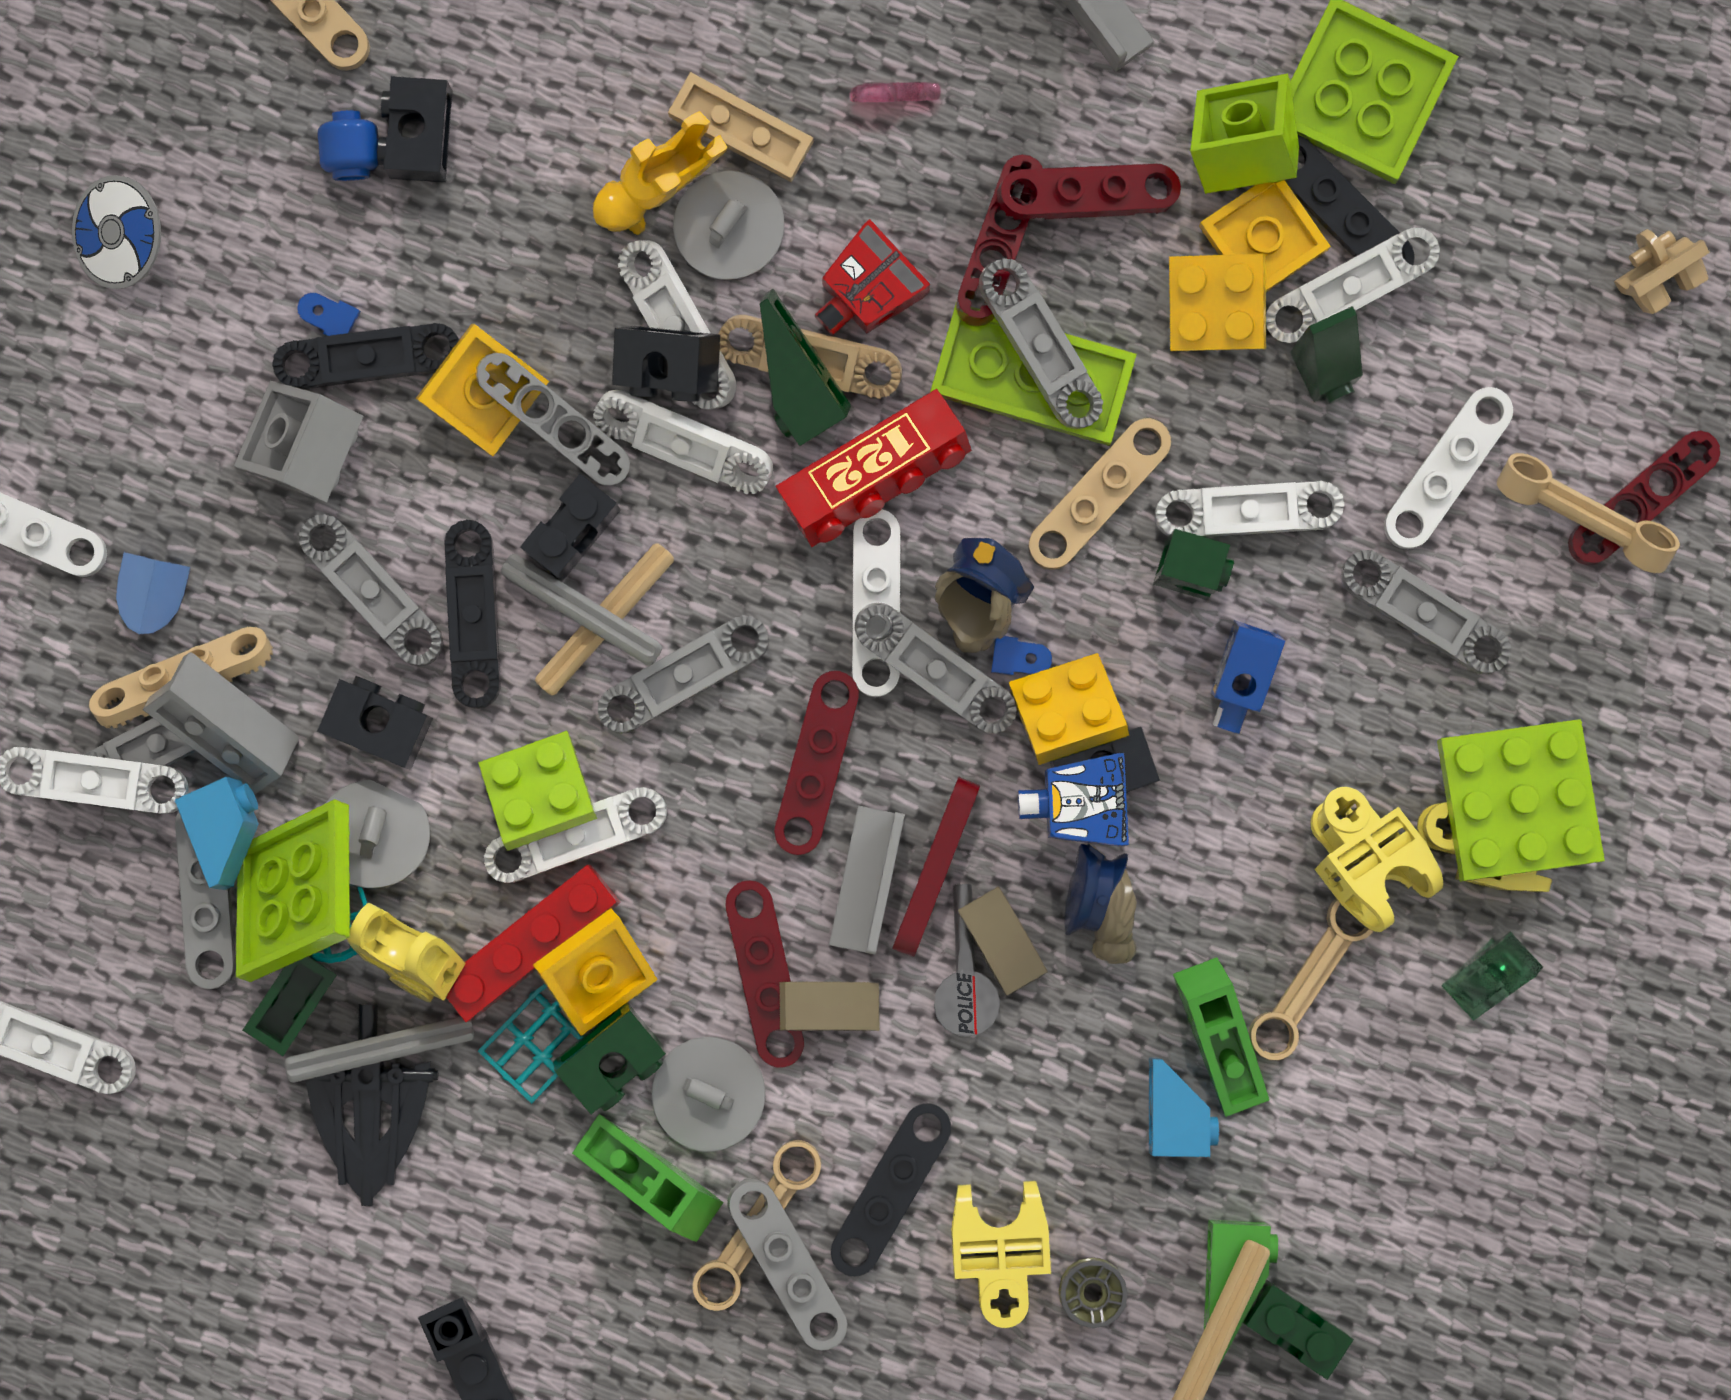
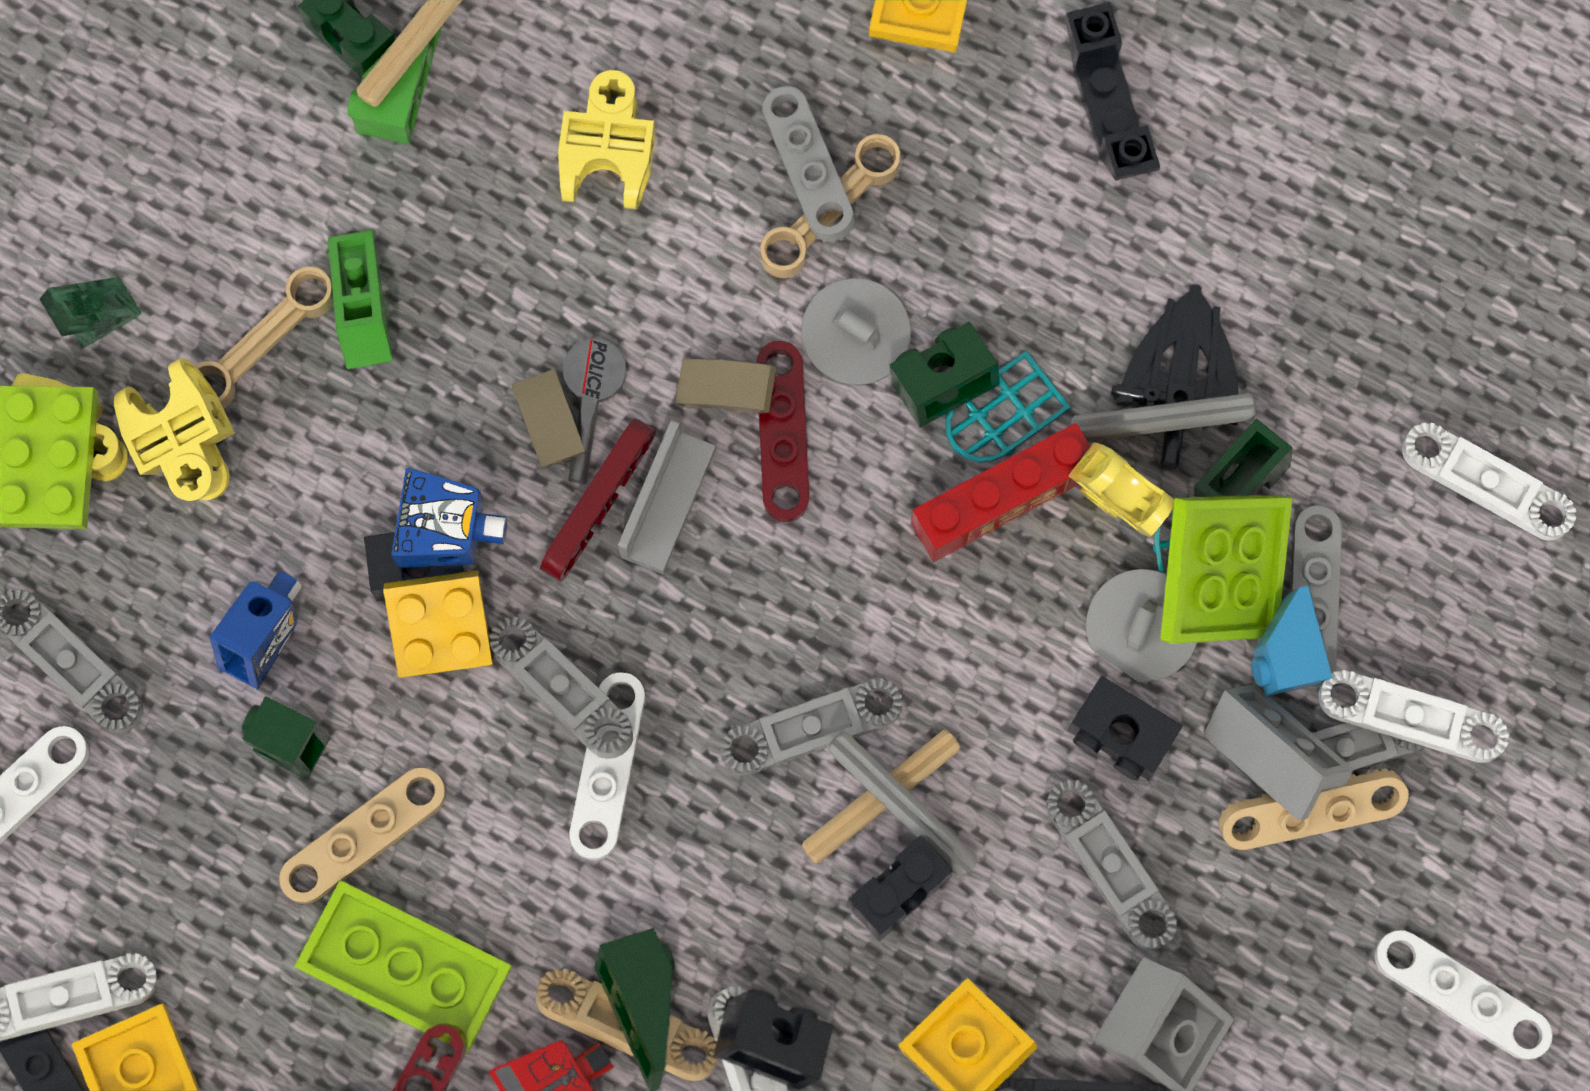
camera: 170 degrees left, 10 degrees down
(149, 592) = (1336, 901): medium blue brick -> none
(472, 614) = (1012, 823): black plate -> none
(537, 790) = (974, 636): lime plate -> none
(550, 422) = (905, 997): light grey beam -> none
(595, 972) = (944, 451): yellow plate -> none
(607, 831) = (943, 590): white plate -> none
(648, 1179) = (925, 260): bright green slope -> none
(683, 441) = (771, 959): white plate -> none
(816, 762) = (695, 620): dark red plate -> none
(874, 468) = (582, 894): red brick -> none
(890, 1189) = (699, 217): black plate -> none
(981, 592) = (500, 748): piece -> none
(1011, 655) = (484, 693): blue piece -> none
(1040, 343) = (388, 988): light grey plate -> none
(1092, 1312) = (535, 78): wheel -> none
(1102, 902) = (443, 433): piece -> none
(1177, 1116) = (417, 232): dark azure slope -> none
(1217, 302) = (199, 1005): yellow plate -> none
(1251, 509) = (217, 791): white plate -> none
(1330, 356) = (99, 923): dark green slope -> none

